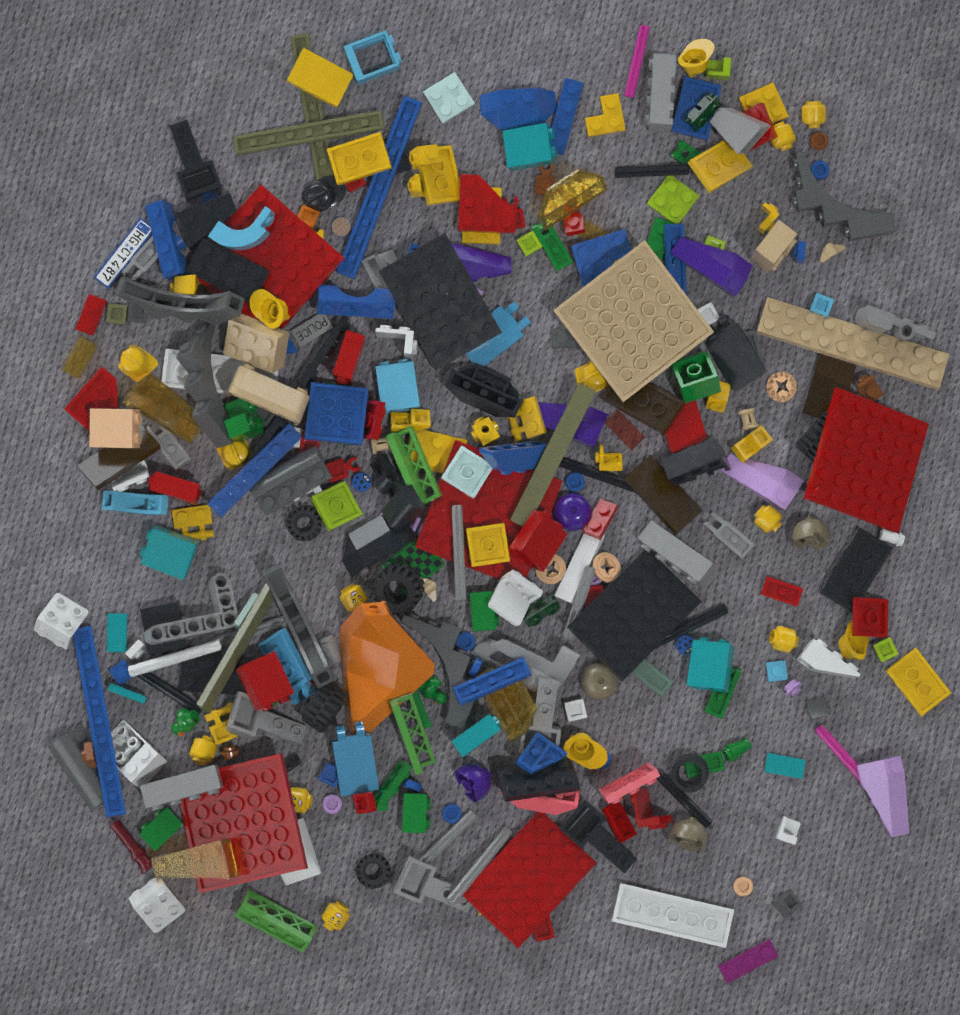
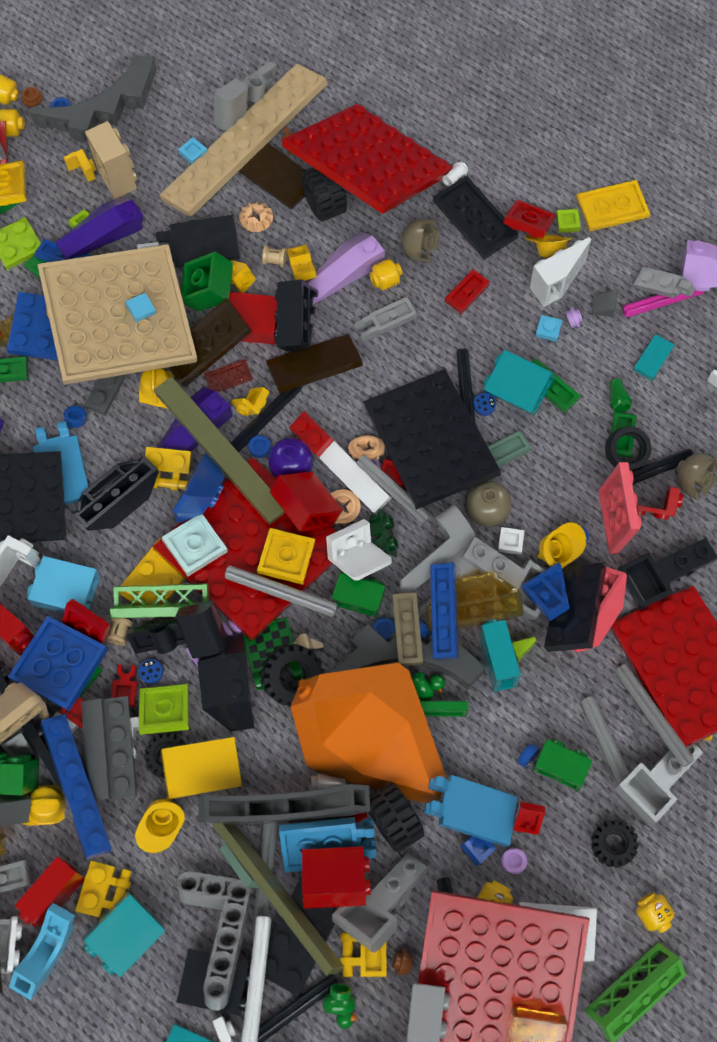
camera: 60 degrees left, 15 degrees down
(203, 750) = (386, 996): yellow head -> none
(253, 542) = (159, 825): none -> yellow piece
(304, 553) = (201, 767): none -> yellow tile
(352, 597) = (279, 733): yellow head -> none
(391, 785) = (517, 777): green plate -> none
(407, 738) = (465, 732): bright green fence -> none
(417, 418) = (104, 598): yellow slope -> none
(451, 813) = (577, 724): blue tile -> none
(466, 660) = (407, 629): none -> dark tan plate
(474, 780) = (553, 678): dark purple cylinder -> none
(485, 438) = (159, 512): yellow brick -> none
(491, 750) = (522, 647): none -> lime slope
(539, 325) = (75, 416): none -> blue tile
(619, 822) = (655, 542): red plate -> none
(644, 339) = (140, 307): none -> medium azure tile
(677, 554) = (384, 370): light grey wedge -> none
(783, 639) = (518, 307): yellow head -> none
(799, 252) = (134, 148): blue plate -> none
(830, 251) = (143, 125): tan piece -> none
(853, 749) = (663, 283): none -> light grey hinge

